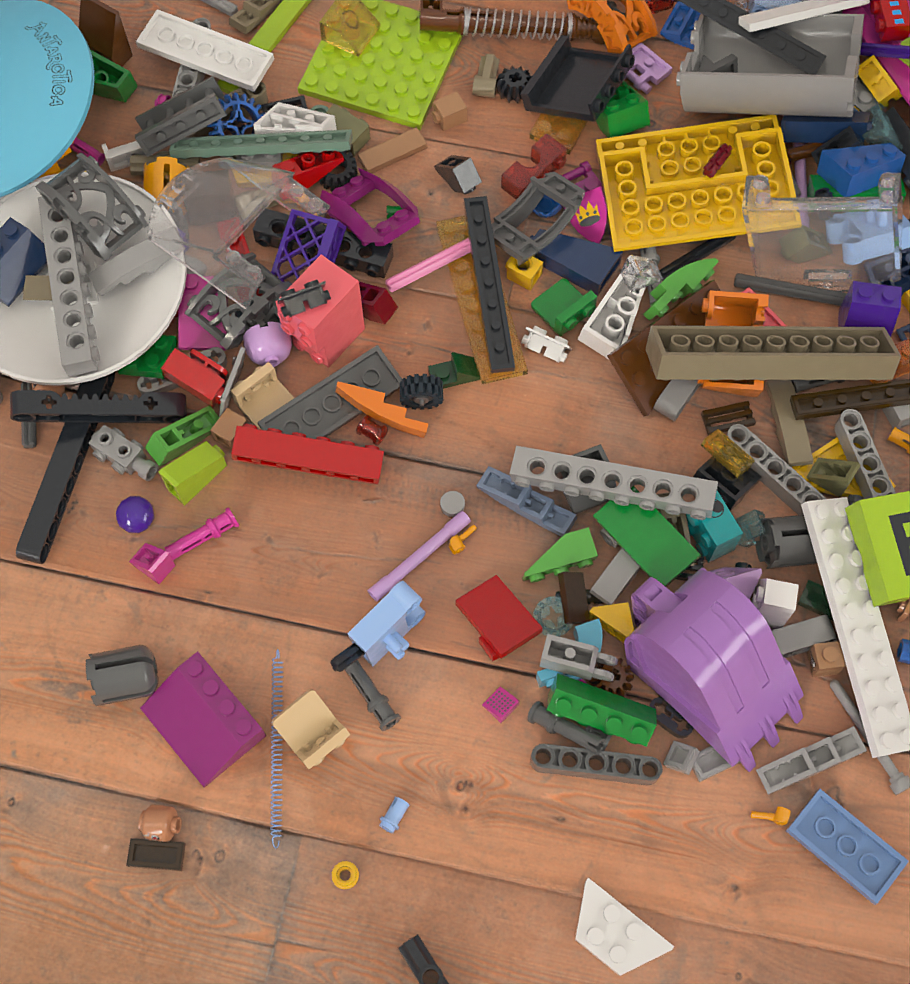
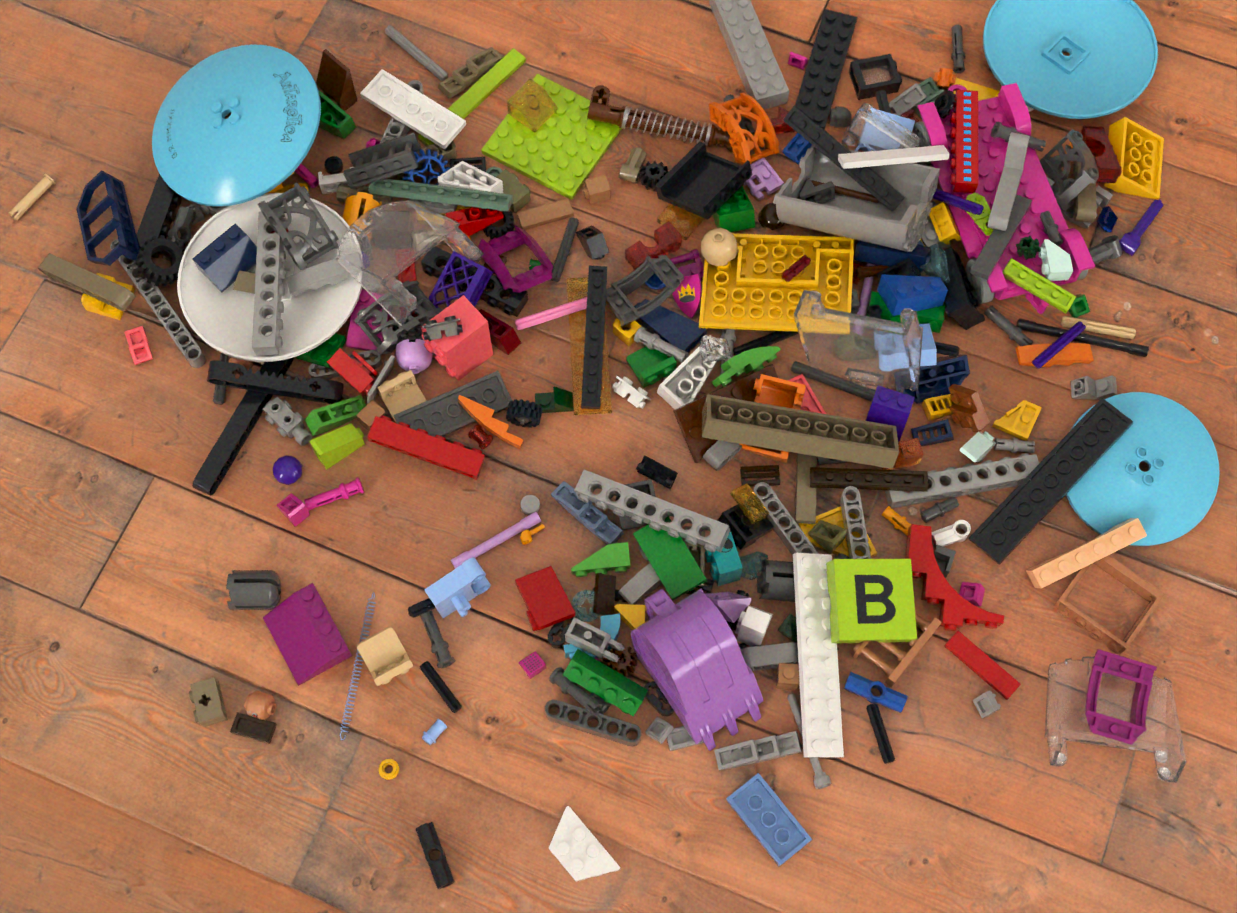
camera: 10 degrees right, 0 degrees up
(101, 842) = (215, 711): none -> dark tan brick
(118, 135) = (333, 165): none -> black tile
(389, 754) = (440, 687): none -> black axle
(425, 187) = (564, 249): none -> dark grey axle
(533, 658) = (555, 630): none -> black beam
(562, 278) = (653, 341): none -> light grey pin
(599, 433) = (657, 472): none -> black hinge
(616, 151) = (718, 246): none -> tan cylinder
(667, 108) = (769, 218): none -> dark brown hair
(762, 65) = (851, 193): none -> reddish brown bar
(780, 817) = (724, 789): light orange hand -> none

